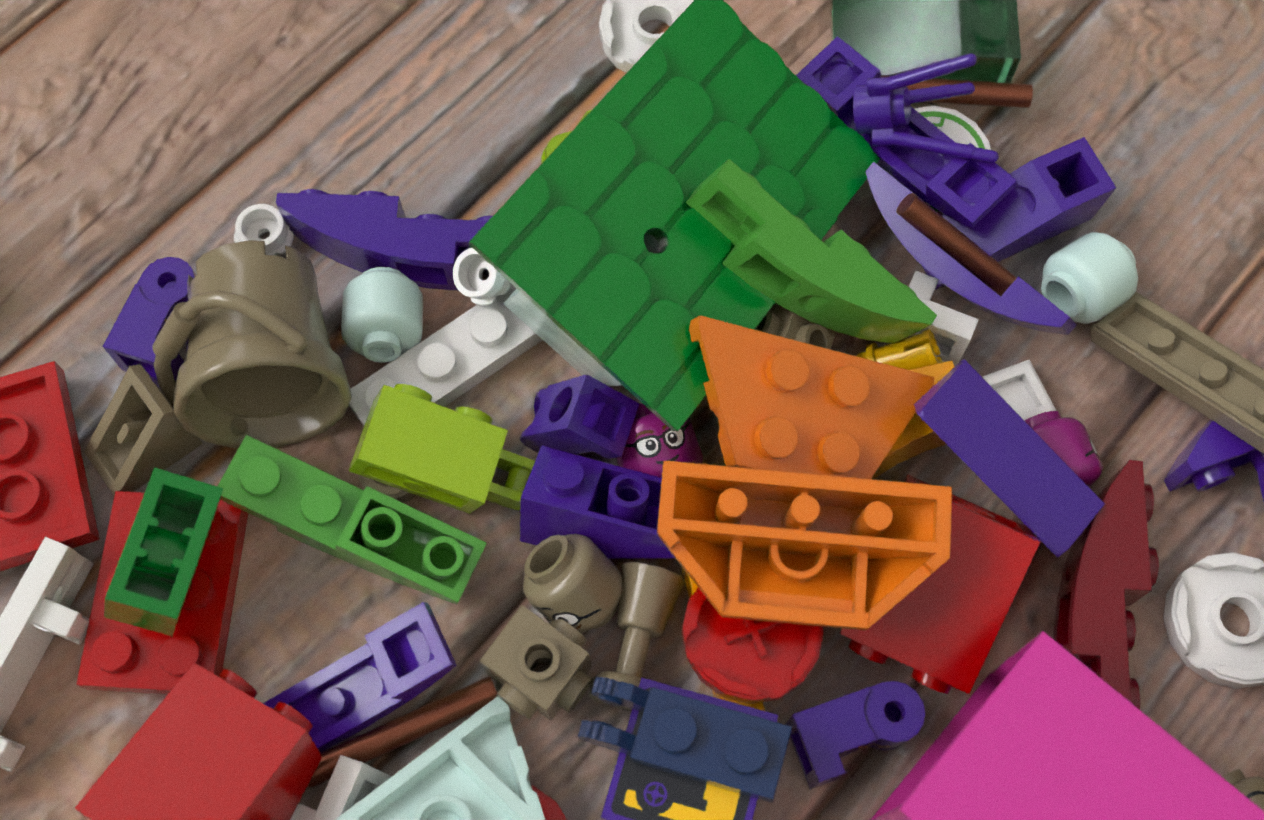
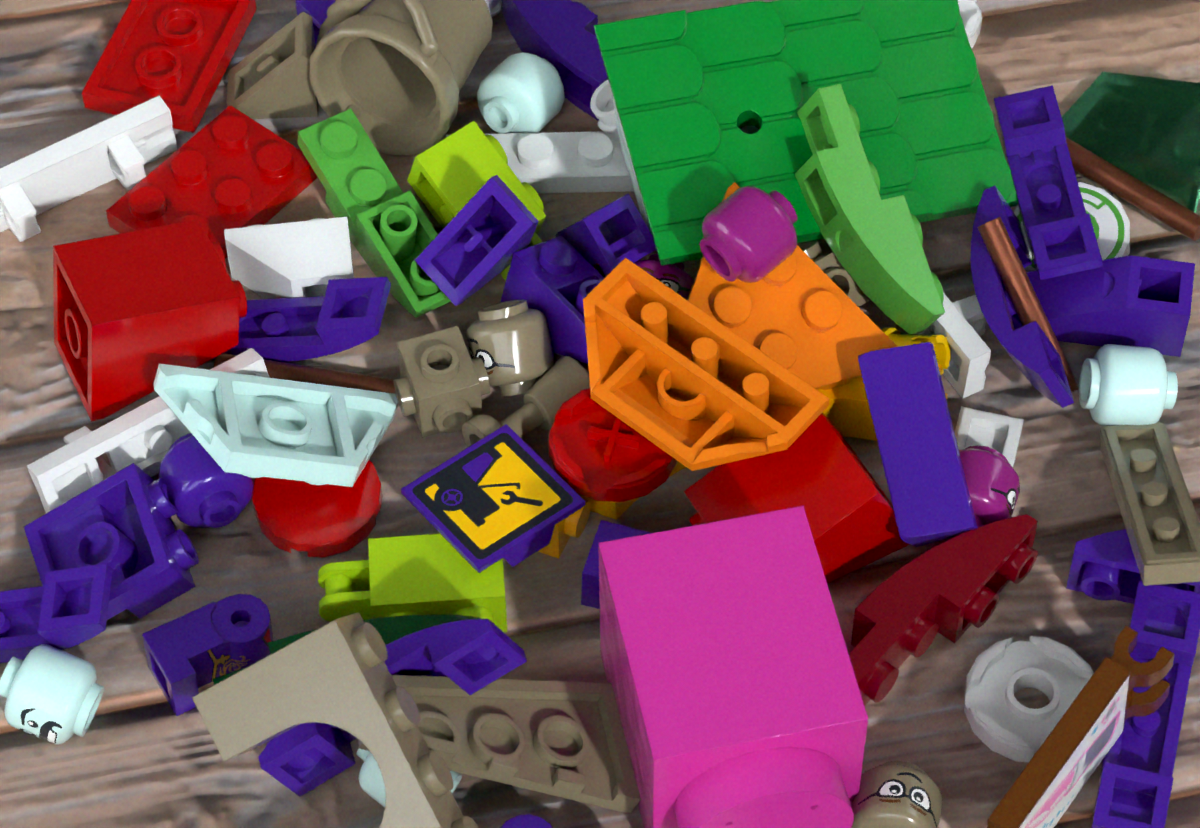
camera: 35 degrees right, 15 degrees down
(162, 552) = (231, 142): green brick -> none
(307, 623) = (290, 257): none -> white slope
(481, 509) = (478, 241): none -> dark purple slope
(694, 739) = (506, 472): dark blue hinge -> none
(766, 367) = (749, 234): none -> magenta head
(887, 102) = (1039, 152): dark purple plant -> none

